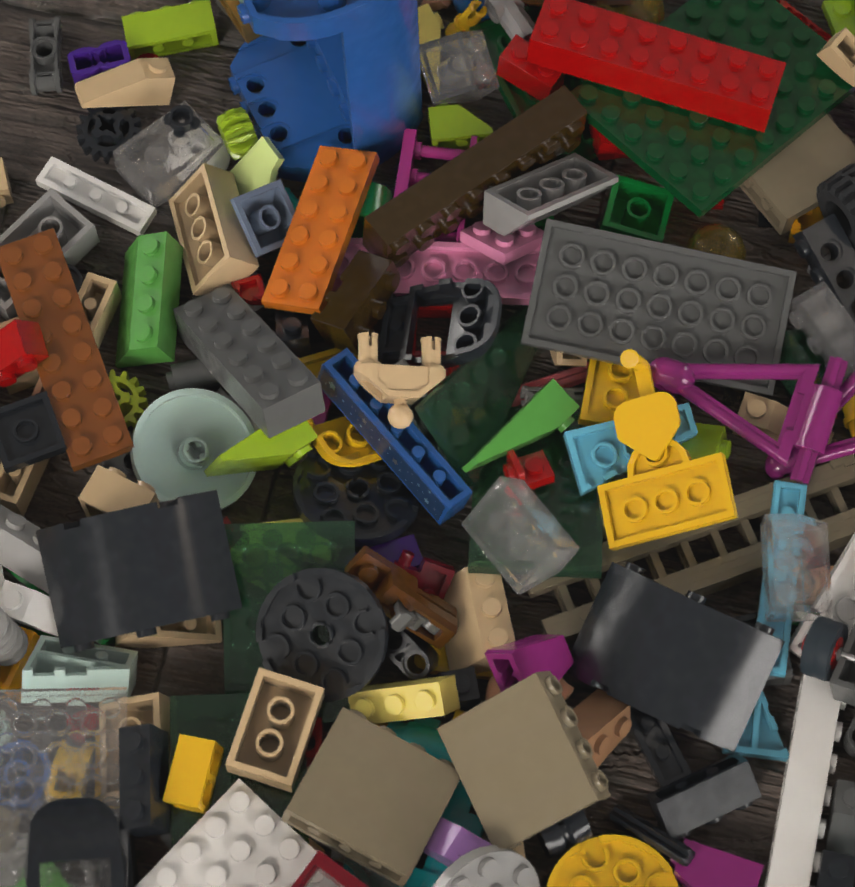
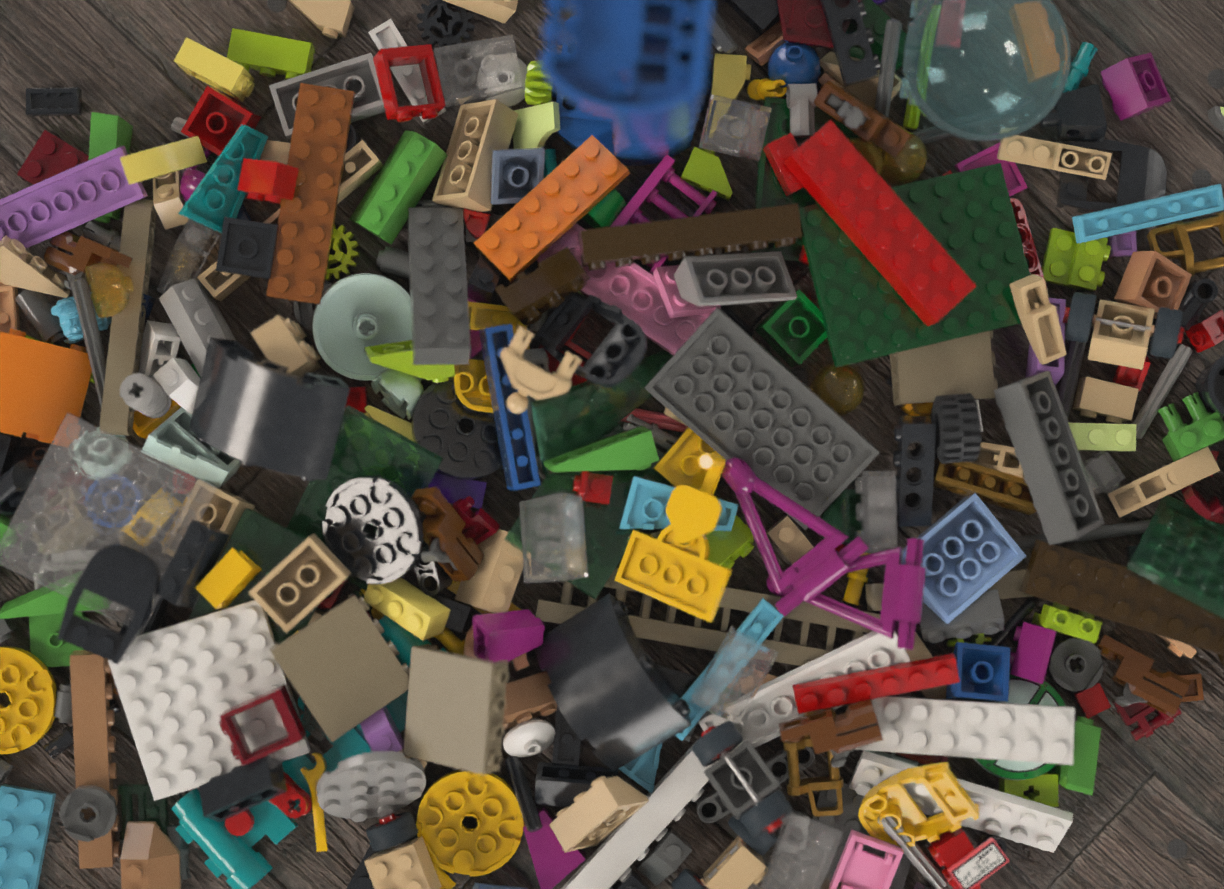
camera: 30 degrees right, 20 degrees up
(108, 168) = (404, 56): none -> red window
(178, 113) = (502, 46): black plate -> none
(265, 496) = (399, 390): none -> light aqua cylinder
(625, 770) = (529, 738): none -> white dish
(745, 802) = (596, 813): none -> tan slope

